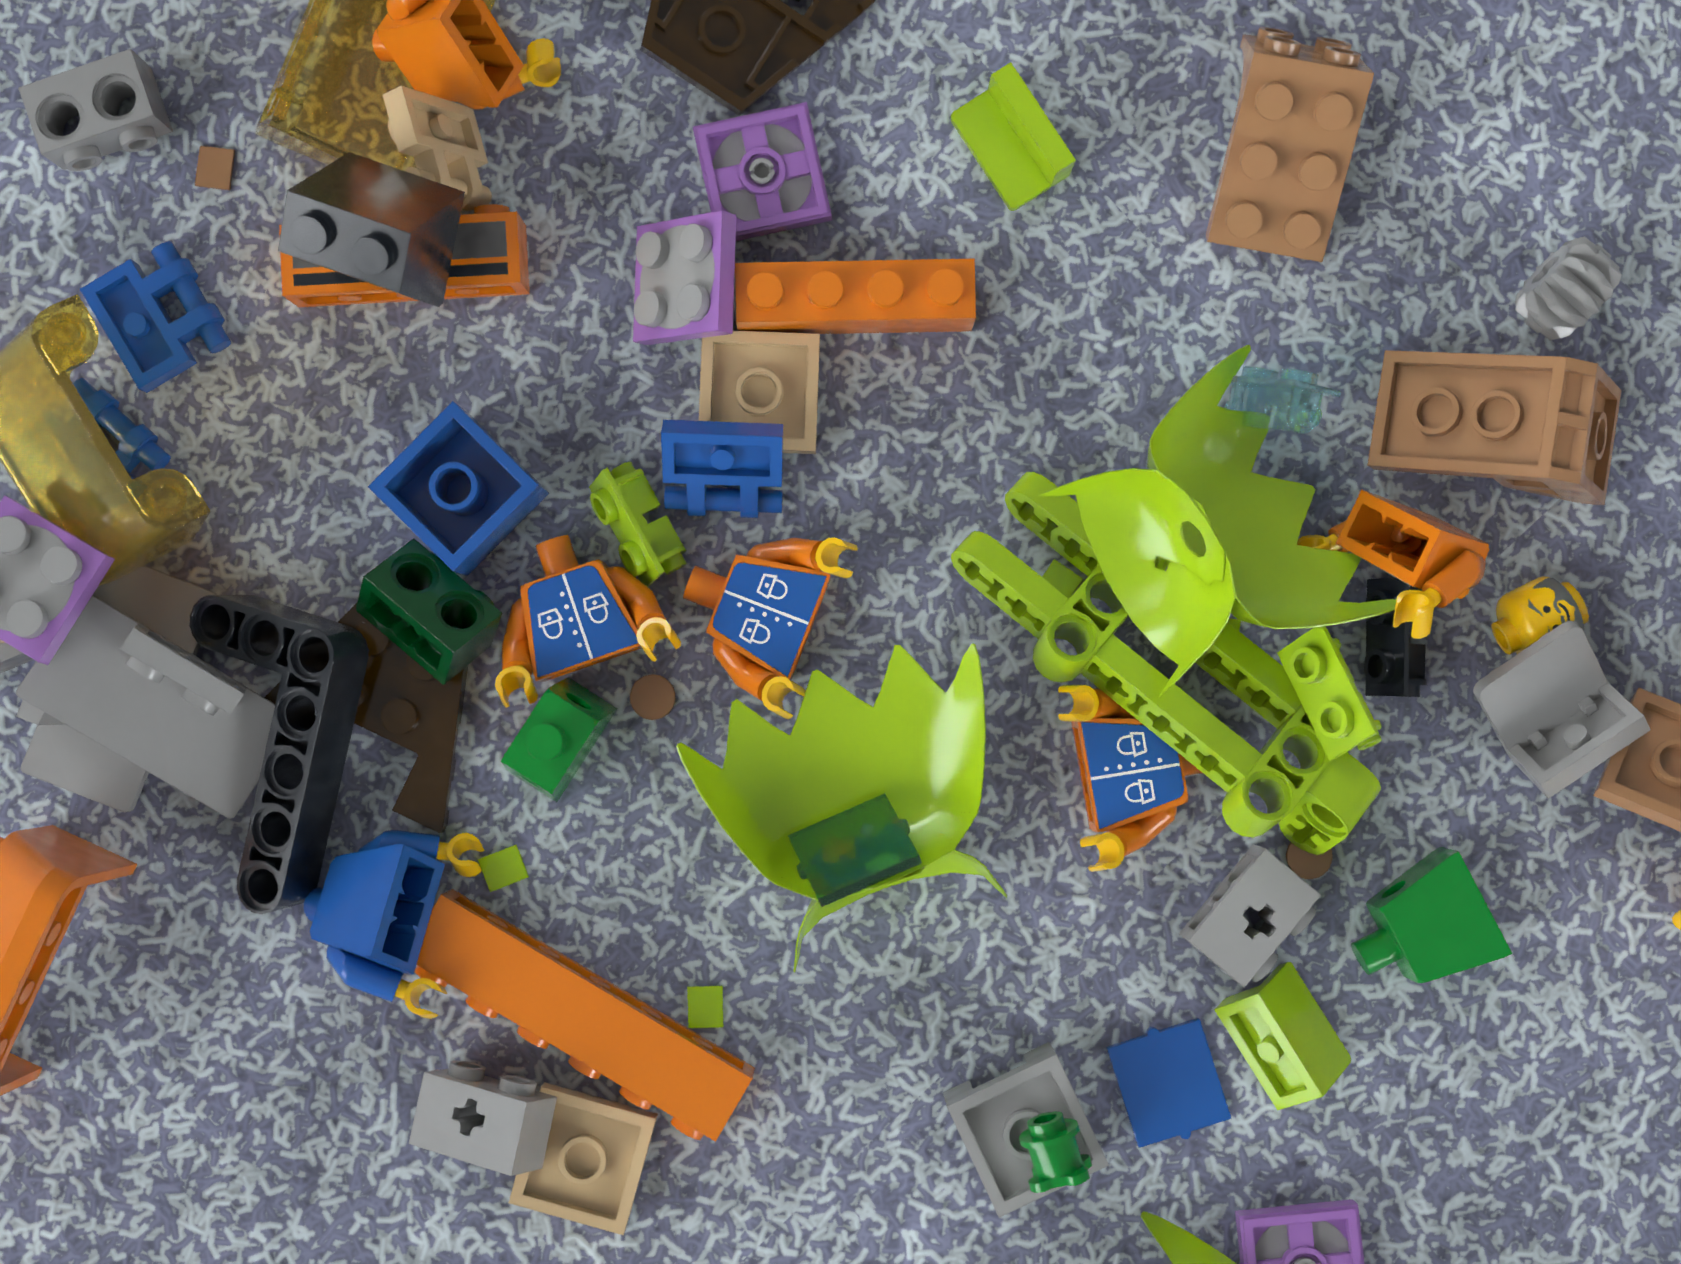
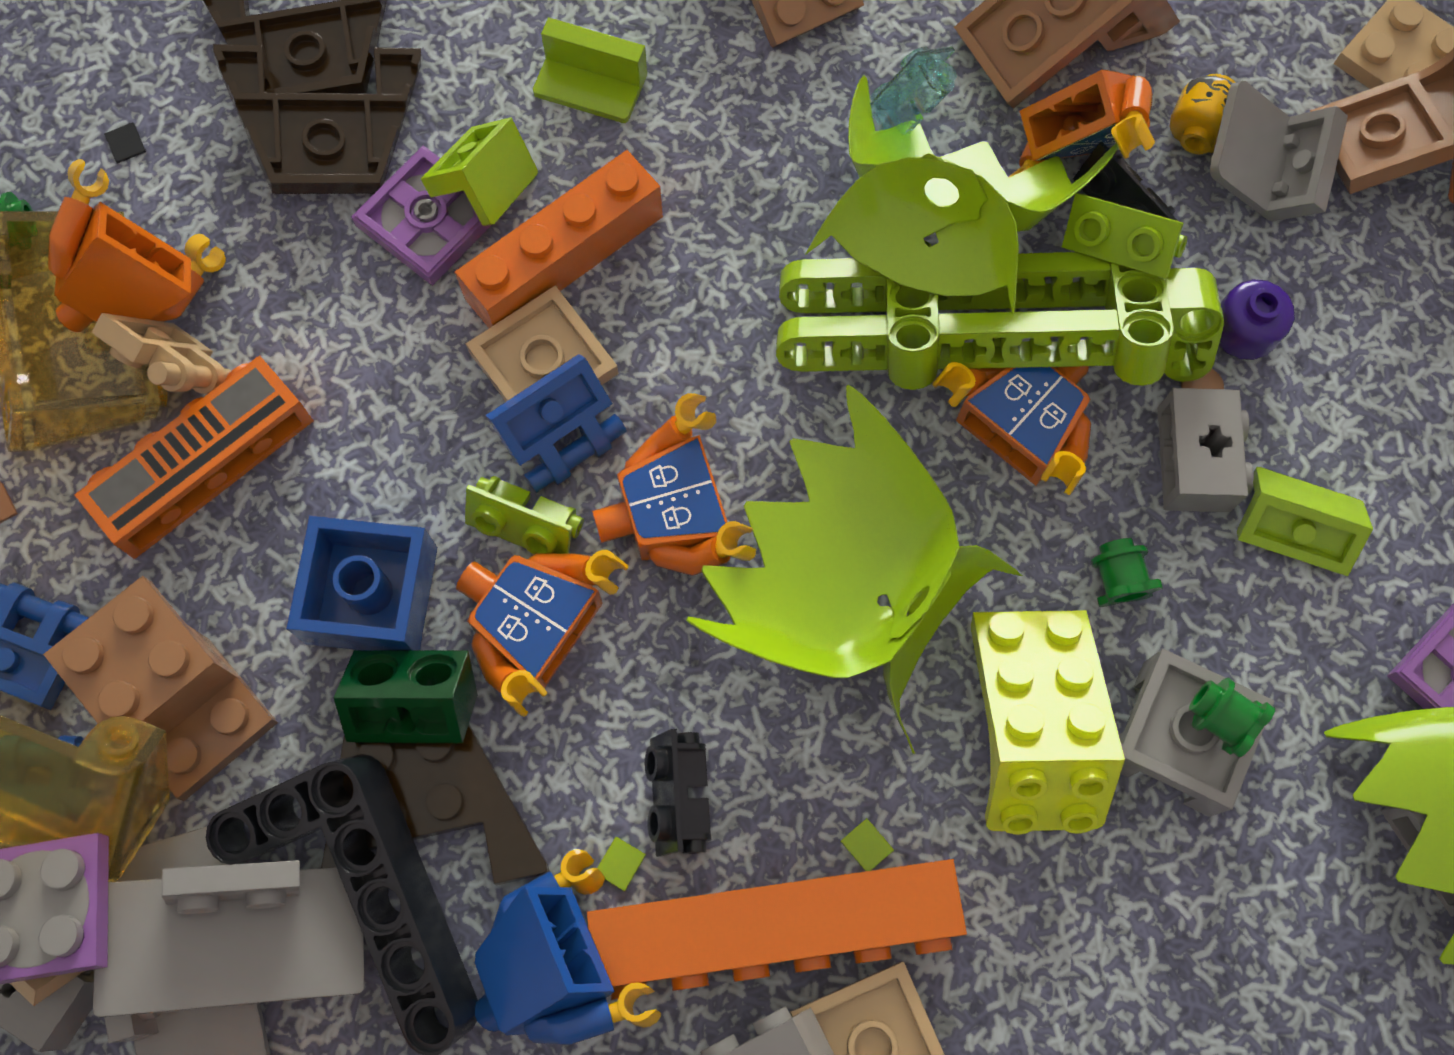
camera: 40 degrees left, 15 degrees down
(242, 449) = (153, 667): none -> medium nougat bracket
(375, 226) = (154, 426): slope -> none
(557, 737) = (585, 723): green torso -> none
(594, 831) = (674, 820): none -> black hinge
(652, 697) = (635, 639): medium nougat piece -> none
(685, 278) = (425, 315): piece -> none
(838, 173) = (488, 166): none -> lime panel
(854, 849) = (885, 605): clear green piece -> none
(923, 1023) = (1047, 722): none -> neon yellow bracket
(1091, 963) = (1124, 572): none -> green brick
(1168, 1082) = (1254, 621): blue piece -> none
(1396, 840) = (1255, 319): none -> dark purple head
(1431, 922) = (1328, 358): green torso -> none

